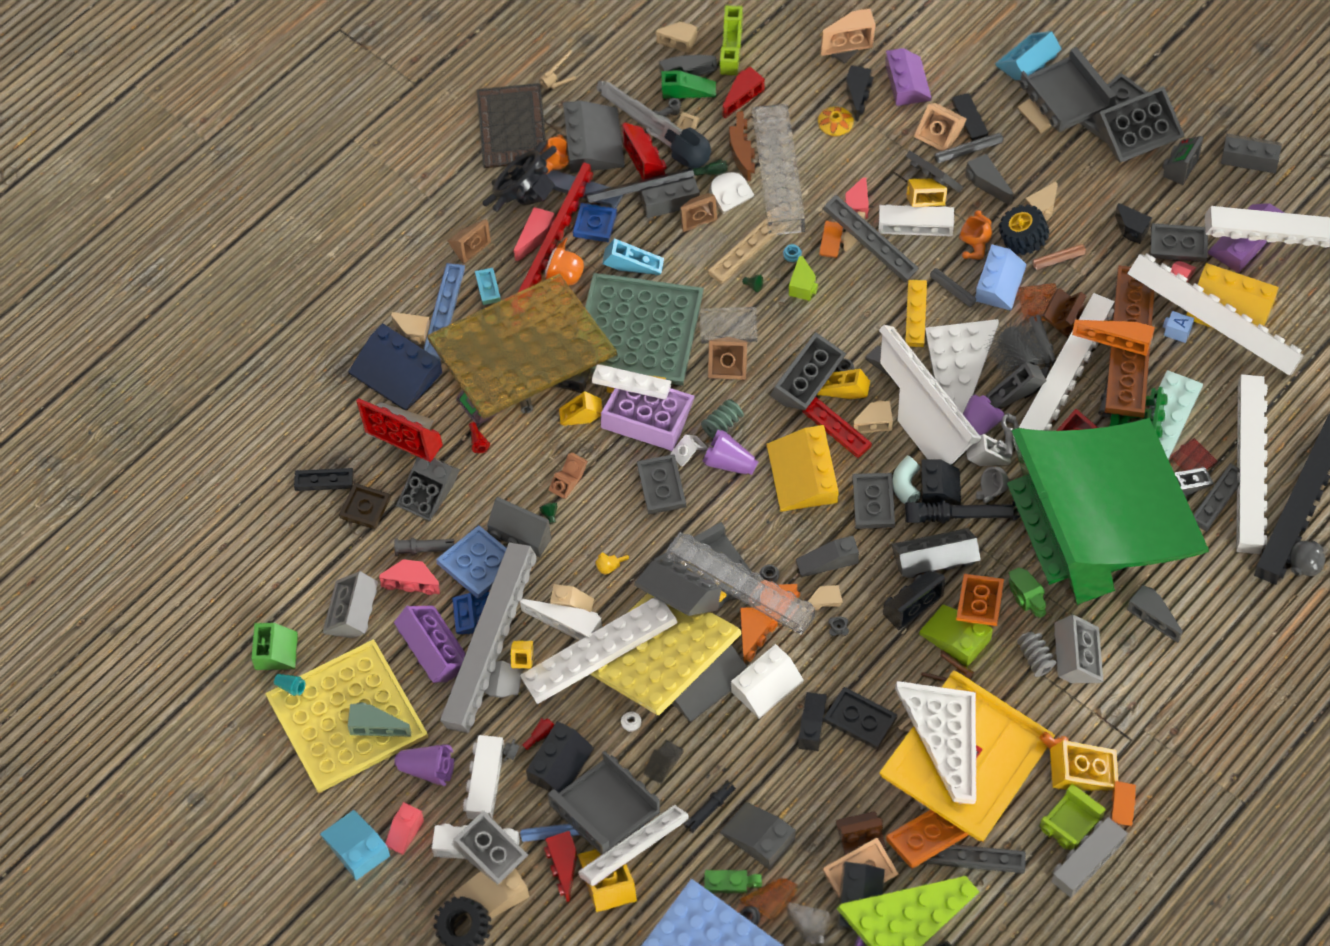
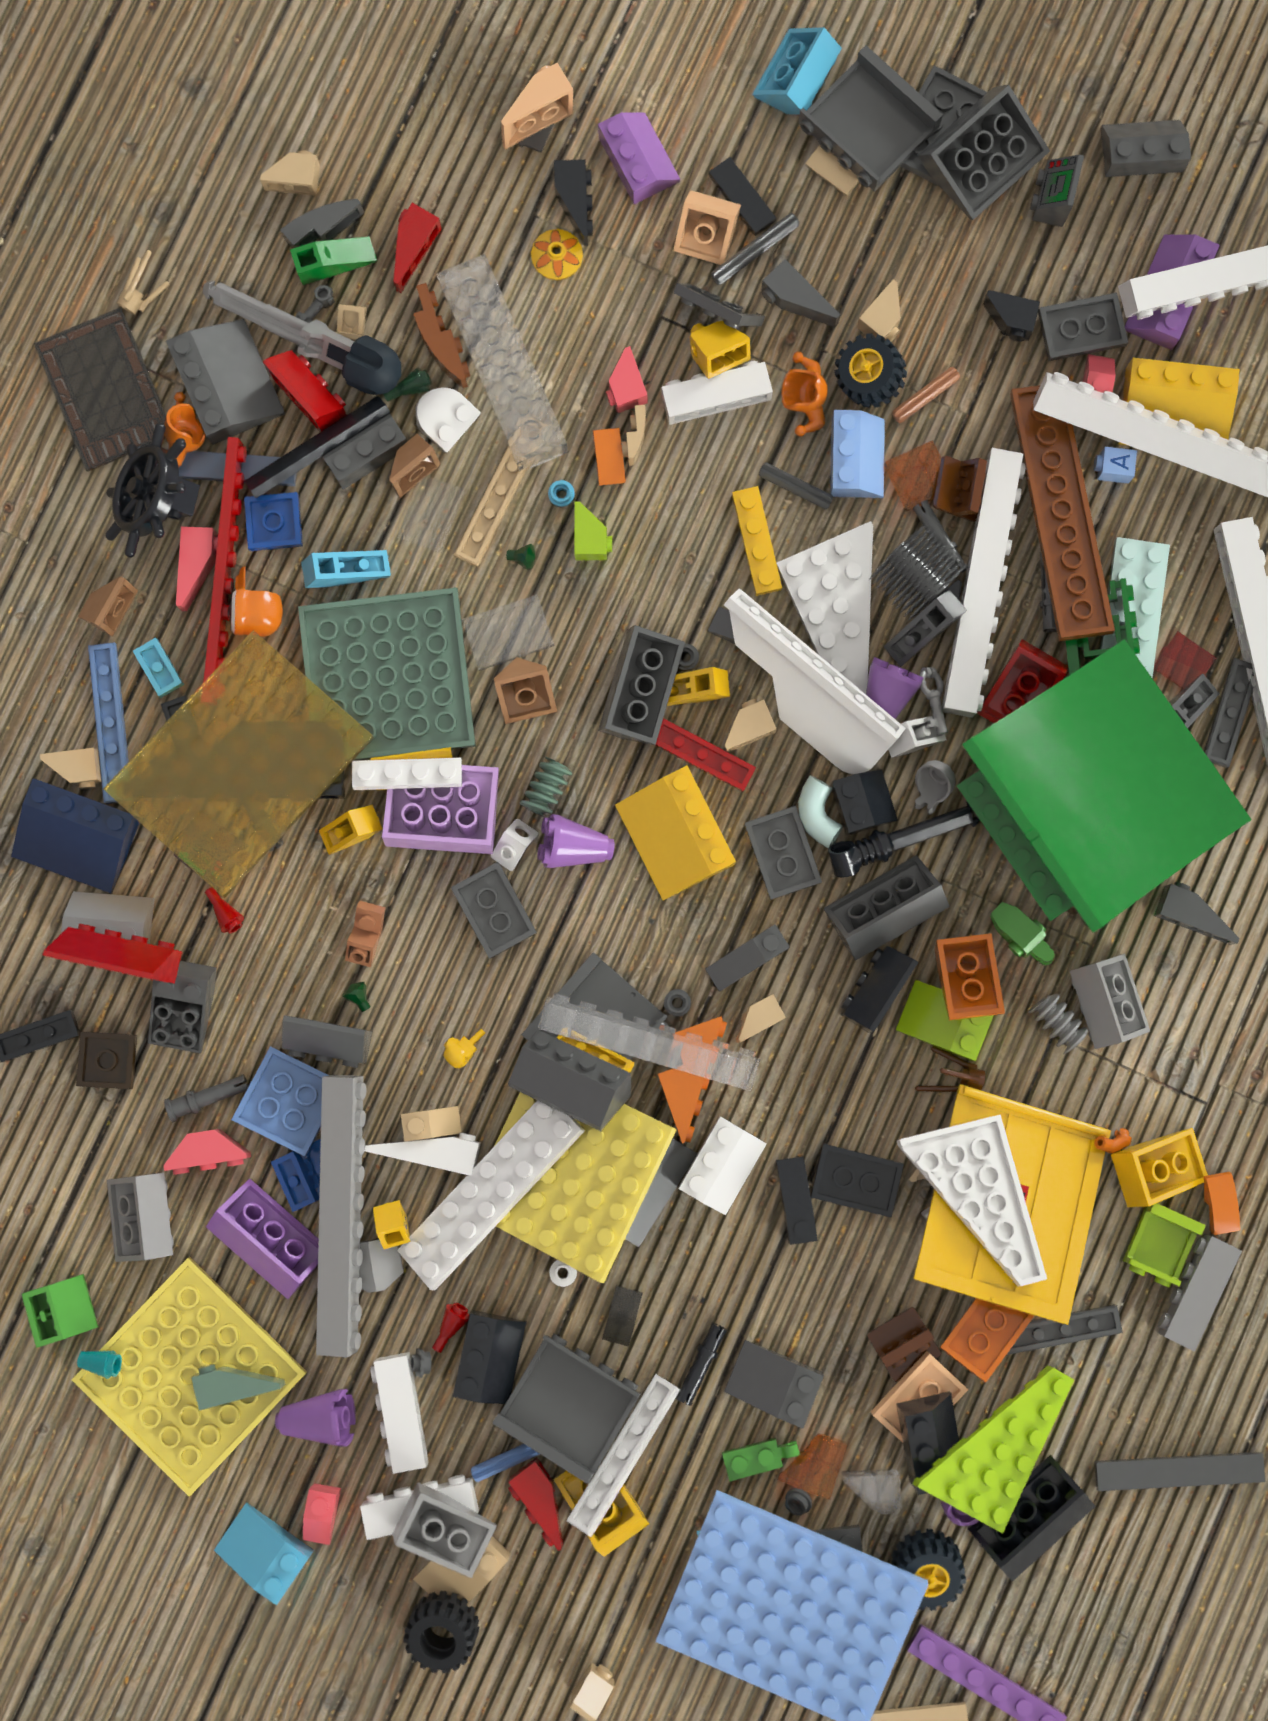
camera: 15 degrees left, 25 degrees up
(731, 40) = (371, 162): lime arch -> none
(834, 622) = (797, 1056): dark grey plate -> none
(870, 238) = (664, 446): dark grey plate -> none
(1119, 334) = (1061, 512): orange slope -> none

